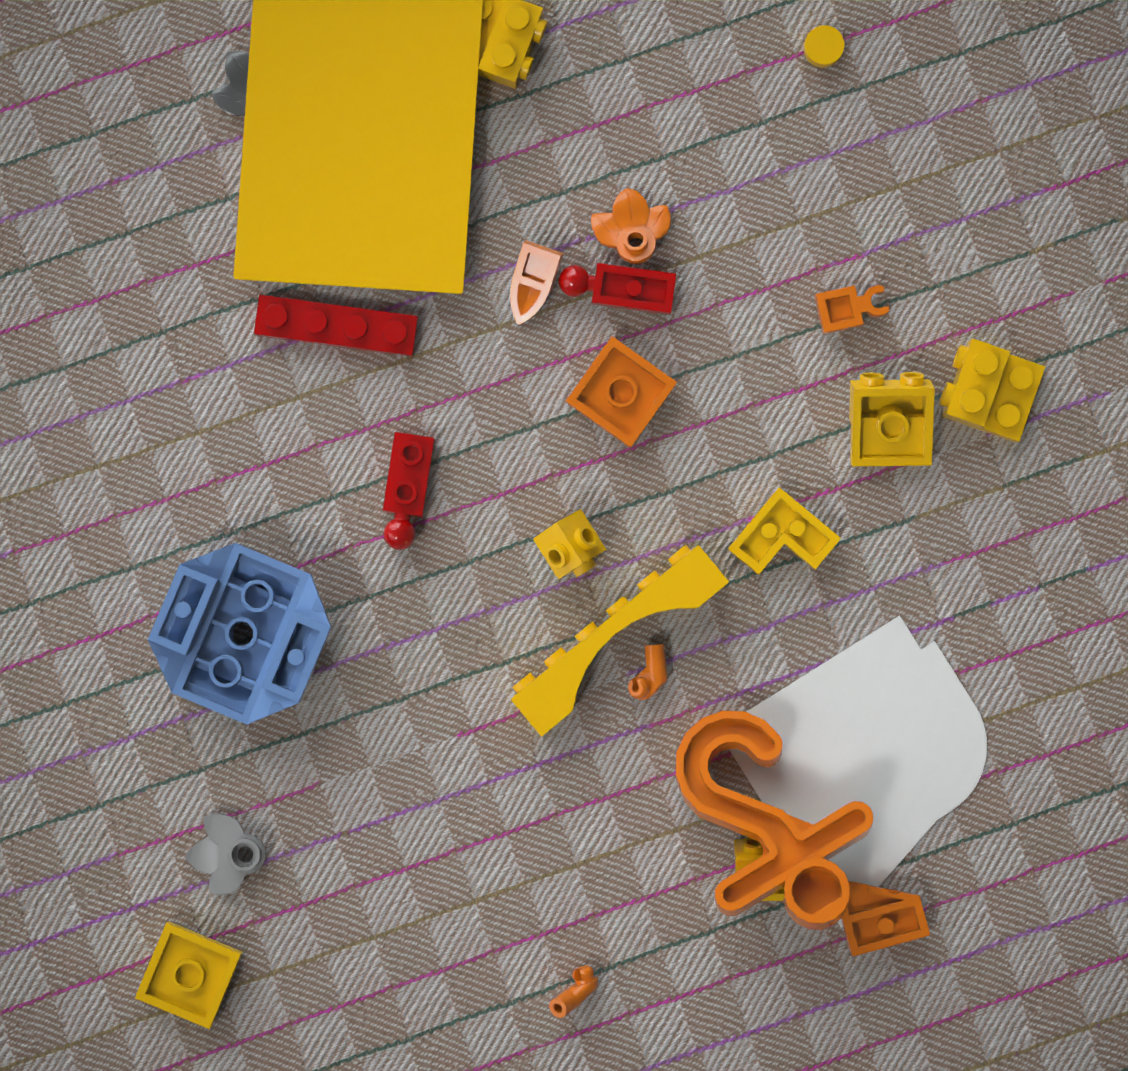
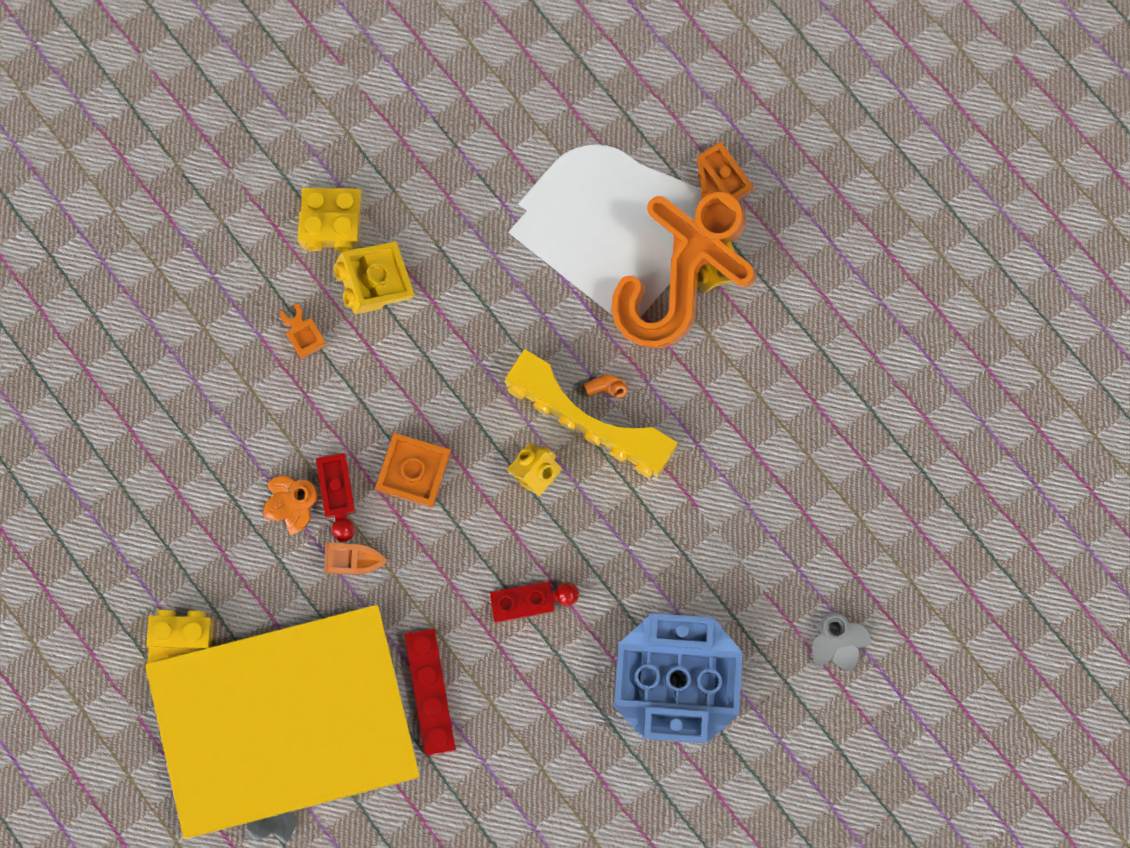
camera: 105 degrees left, 10 degrees down
(188, 975) = (935, 638): yellow plate -> none
(572, 997) = (846, 364): orange arm -> none
(783, 523) = (470, 326): yellow plate -> none
(823, 46) = (117, 410): yellow tile -> none

